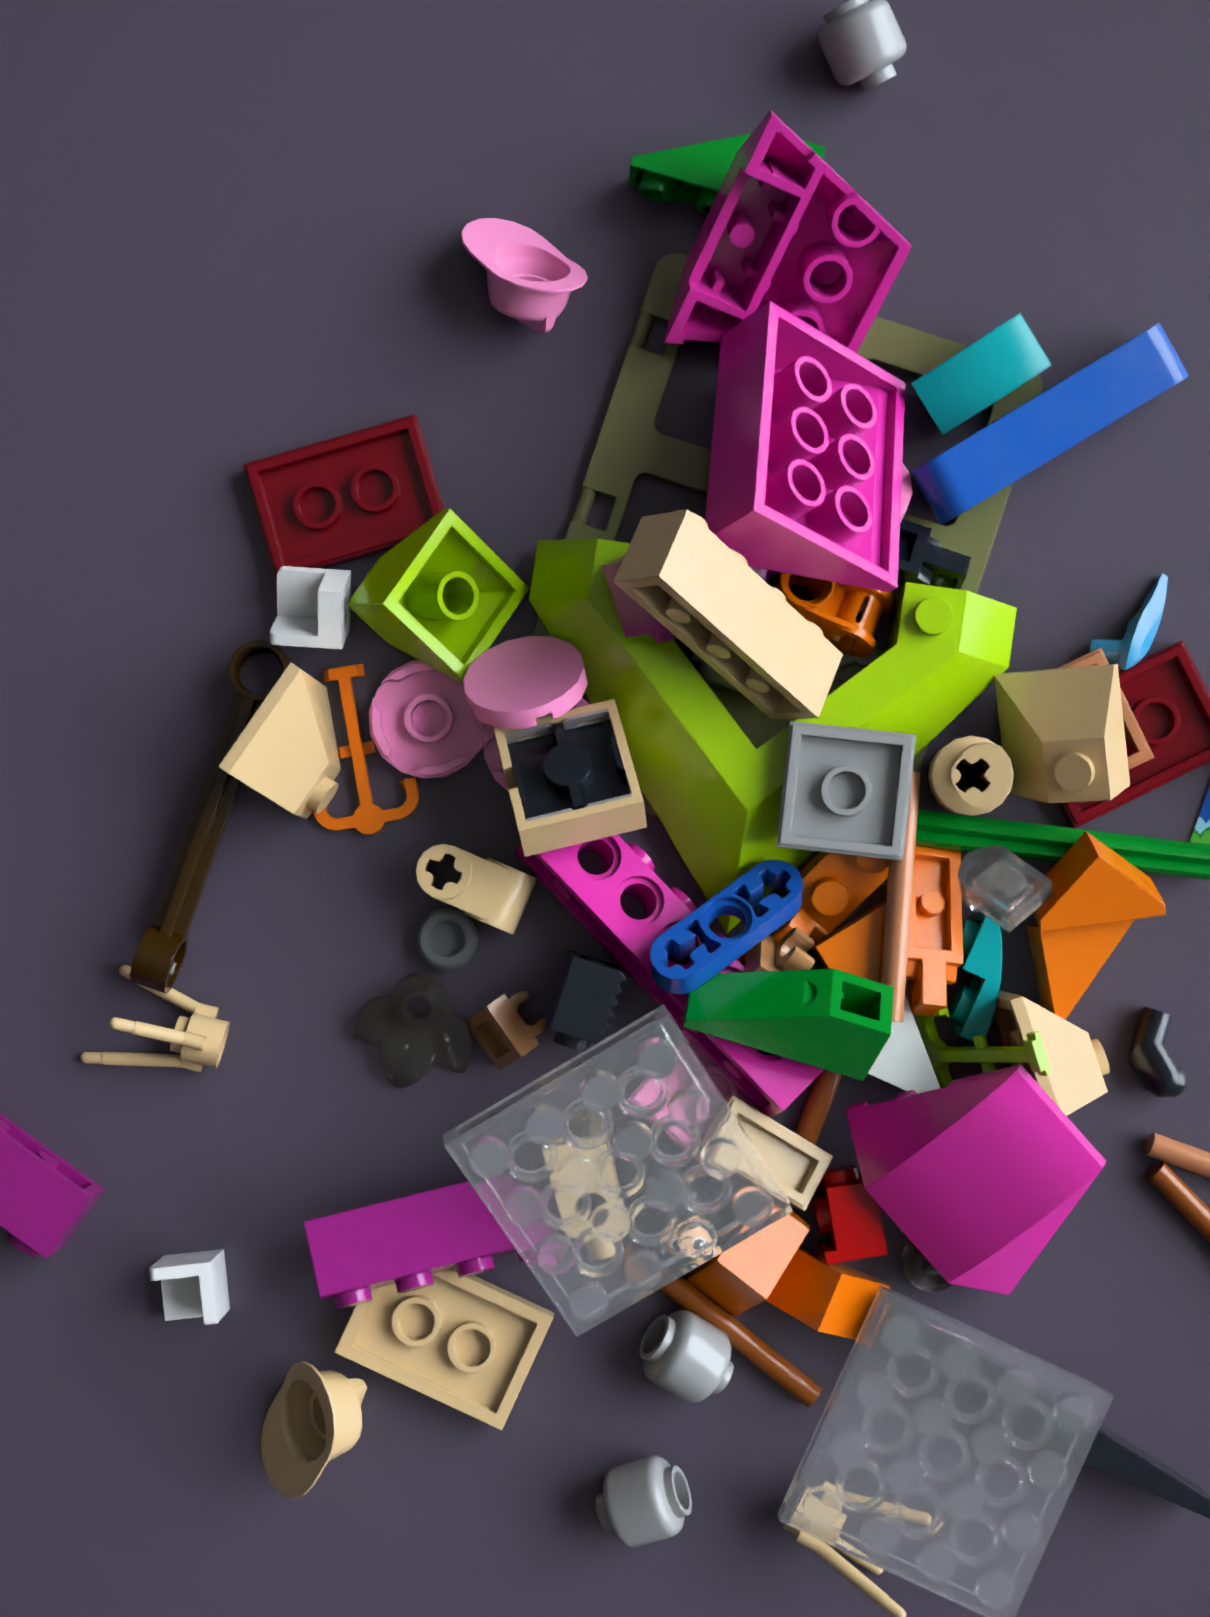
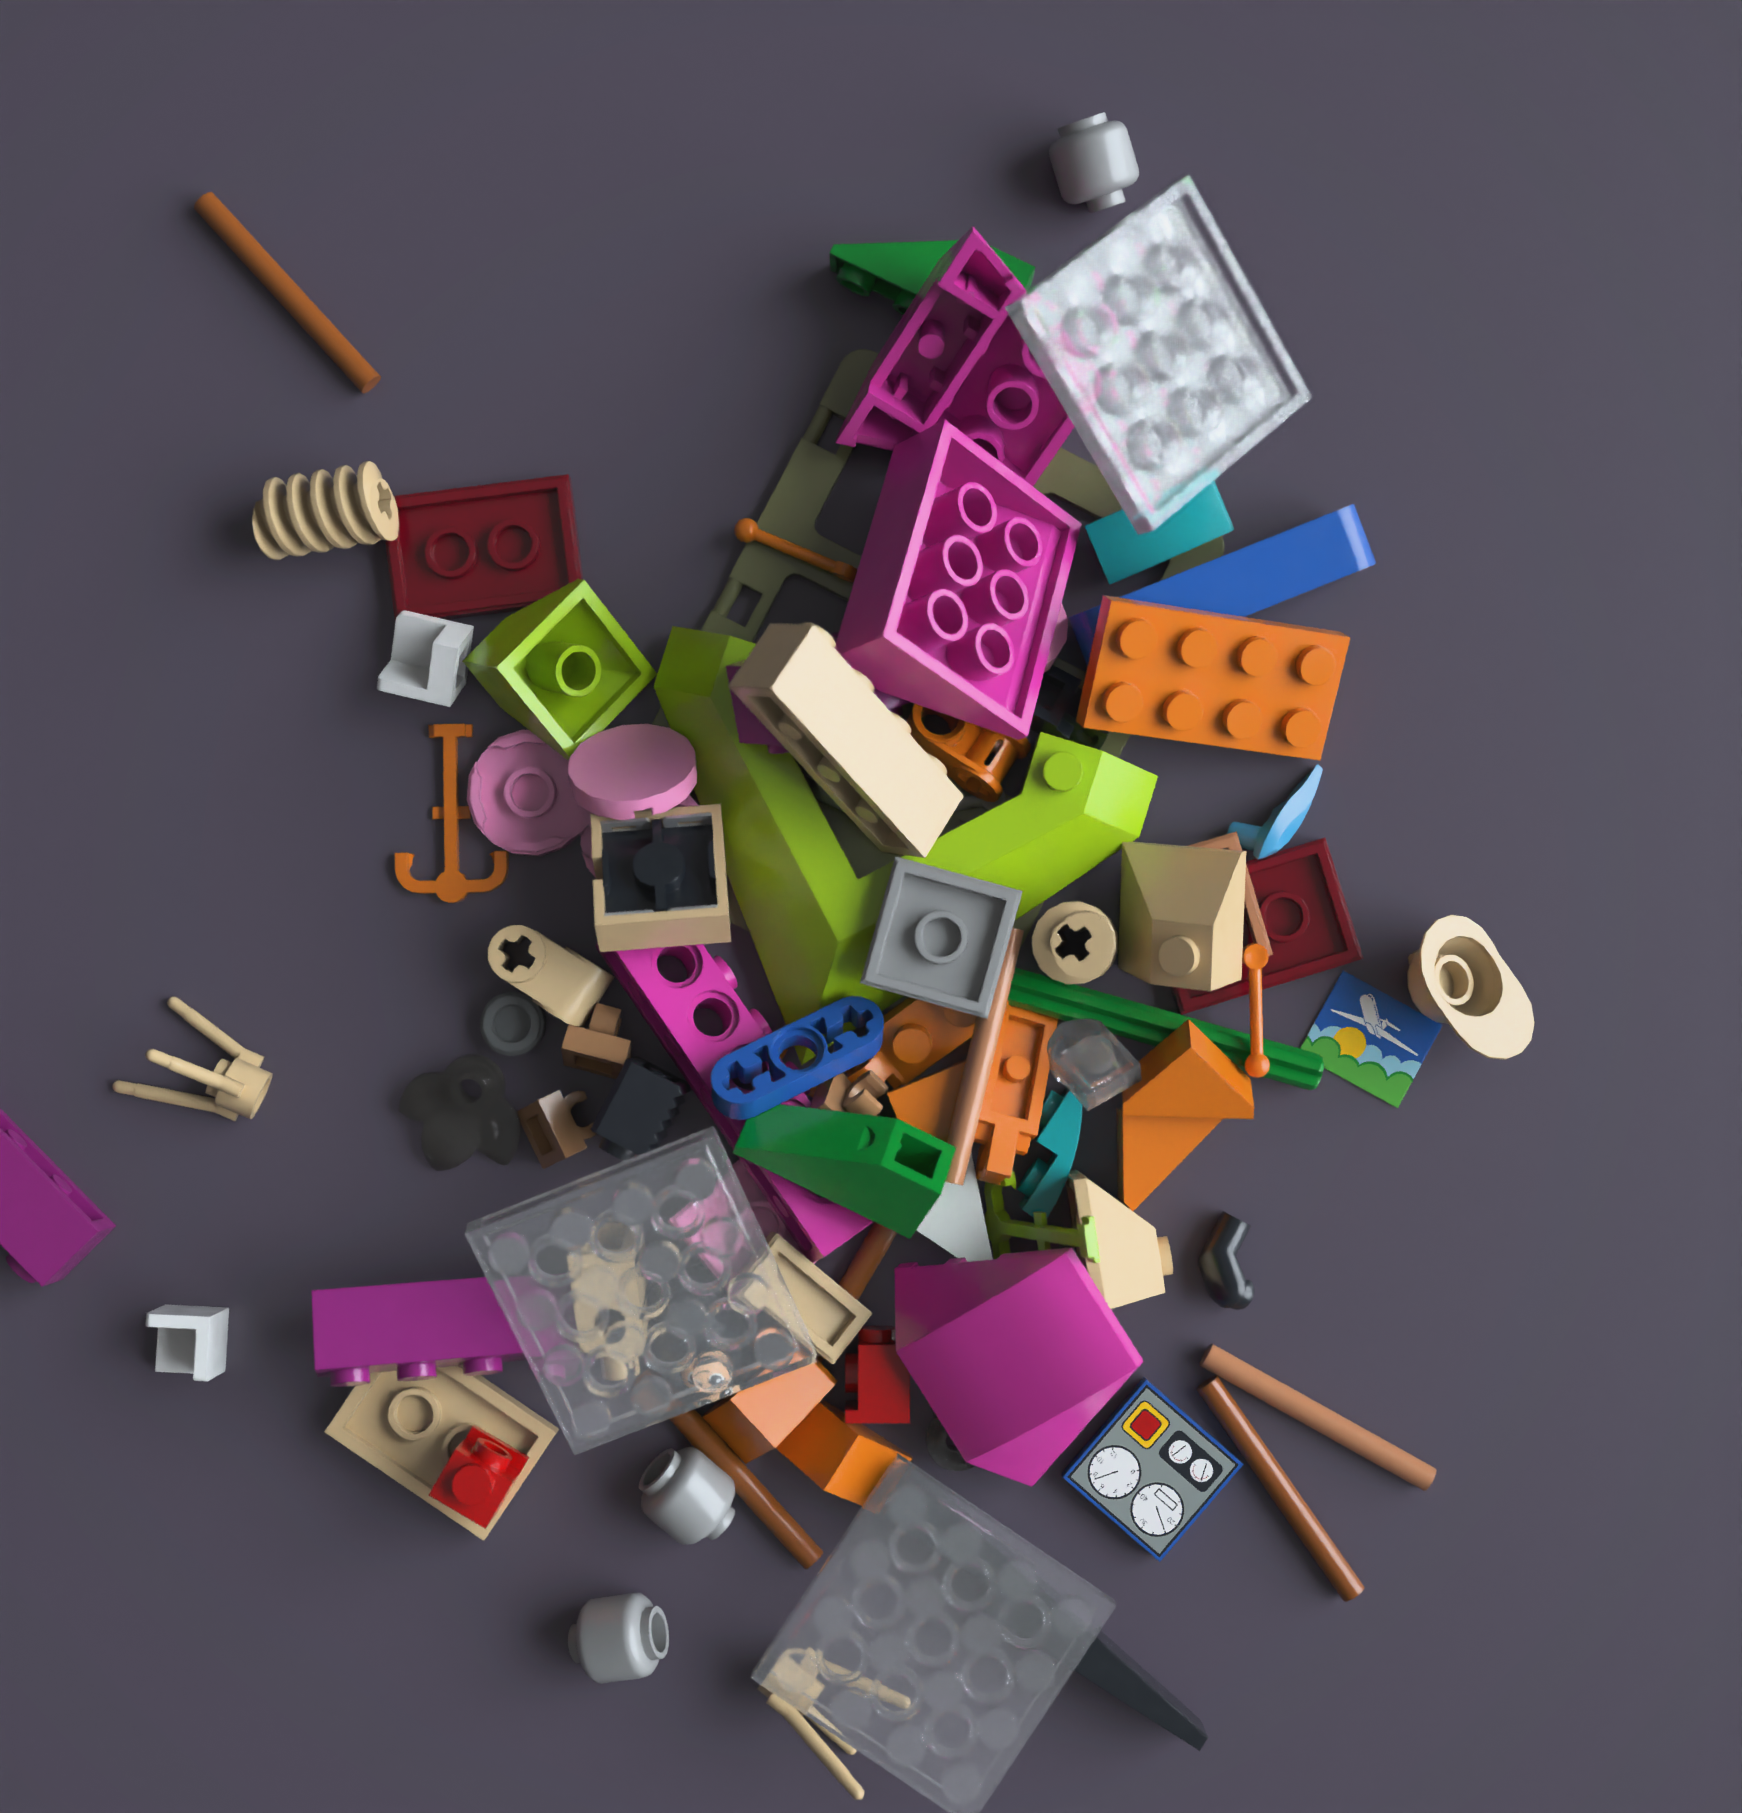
camera: 10 degrees right, 0 degrees up
(123, 286) = (287, 292): none -> dark orange bar
(166, 940) = (219, 980): dark brown piece -> none
(195, 486) = (325, 512): none -> tan piece
(289, 746) = (379, 798): tan slope -> none
(309, 1425) = (287, 1502): tan piece -> none
(490, 1372) = (479, 1476): none -> red brick
(523, 271) = (703, 344): bright pink piece -> none
(533, 948) = (599, 1047): none -> medium nougat tile
(593, 440) = (747, 530): none -> orange hinge
(960, 207) = (1160, 354): none -> clear plate
(1055, 506) = (1211, 678): none -> orange plate
(1117, 1260) = (1151, 1469): none -> tile
(1140, 763) = (1256, 957): none -> orange hinge

